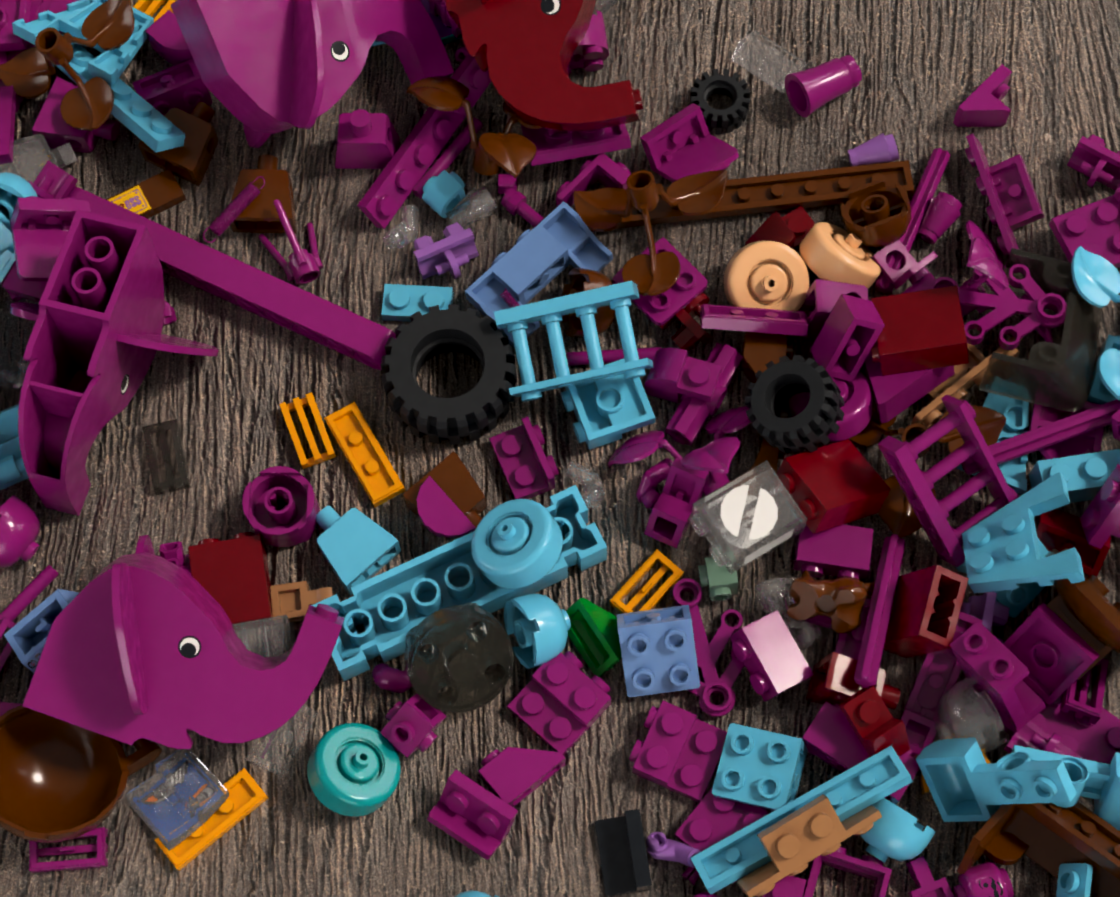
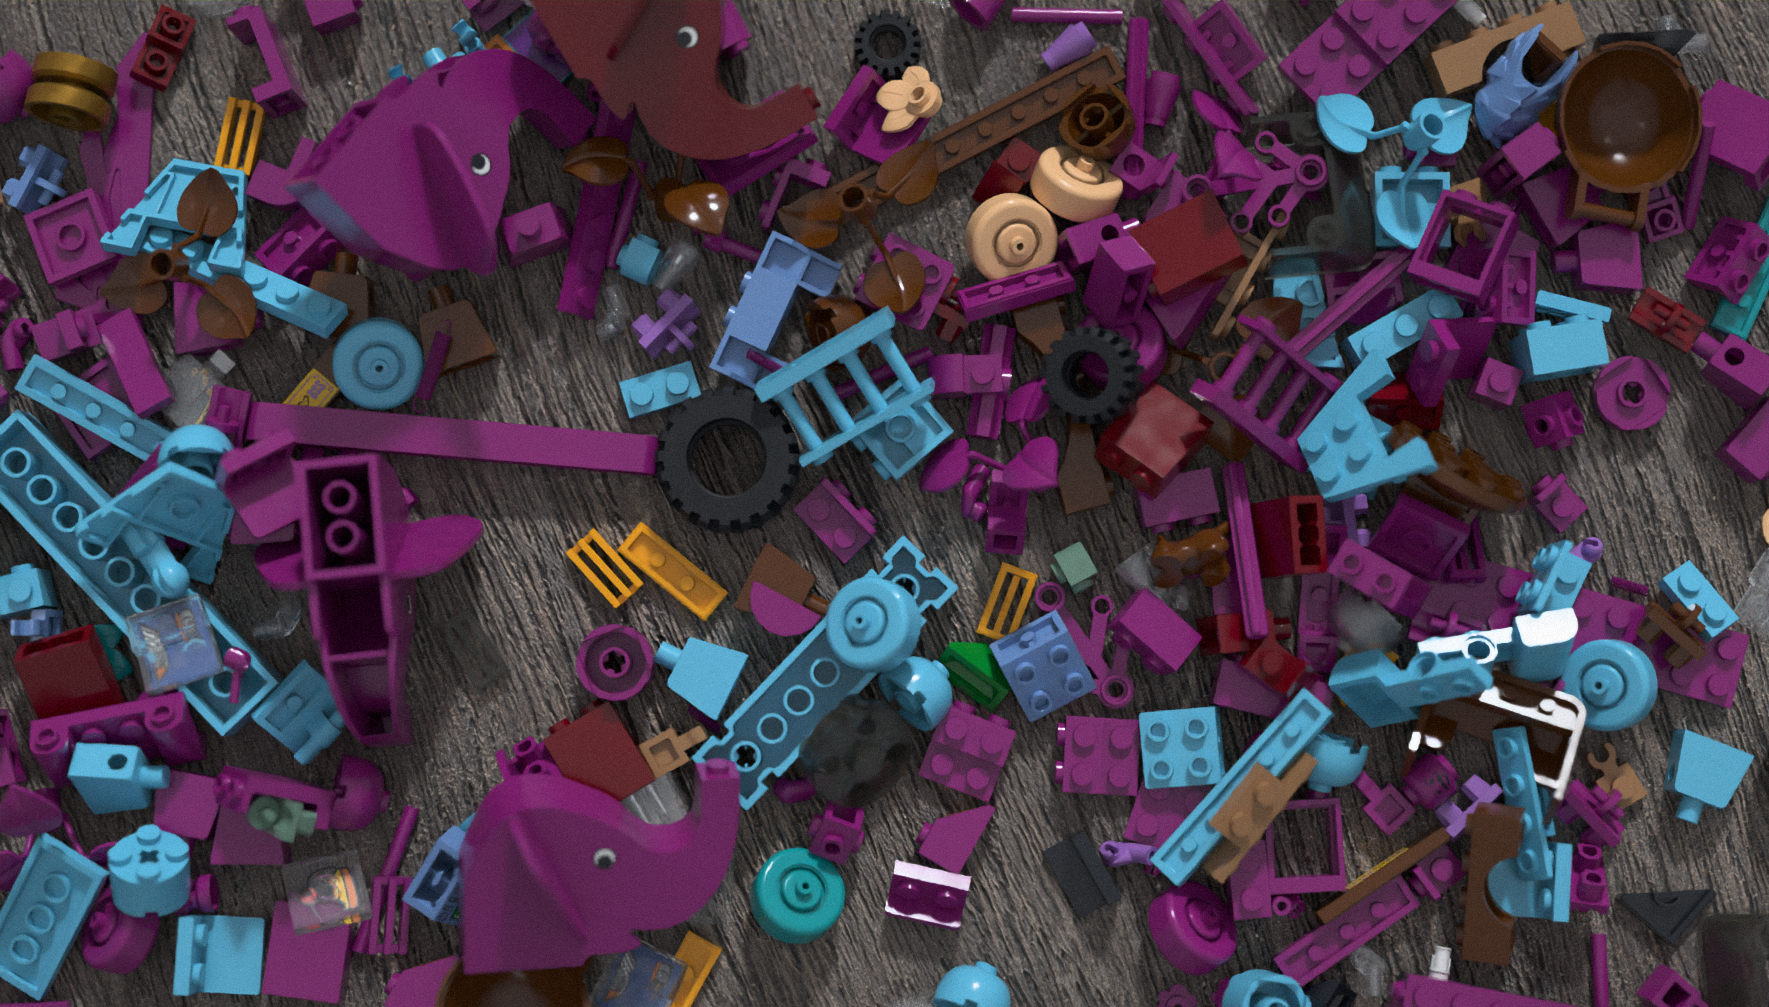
camera: 25 degrees left, 15 degrees up
(189, 194) = (378, 363): none -> medium azure wheel
(302, 266) = (525, 393): magenta plant -> none
(339, 589) = (705, 718): none -> magenta leg
(590, 482) = (912, 517): clear arm -> none
(729, 138) = (909, 99): none -> light nougat plate
(747, 517) = (1085, 507): clear brick -> none
(876, 128) = (1066, 15): none -> magenta bar

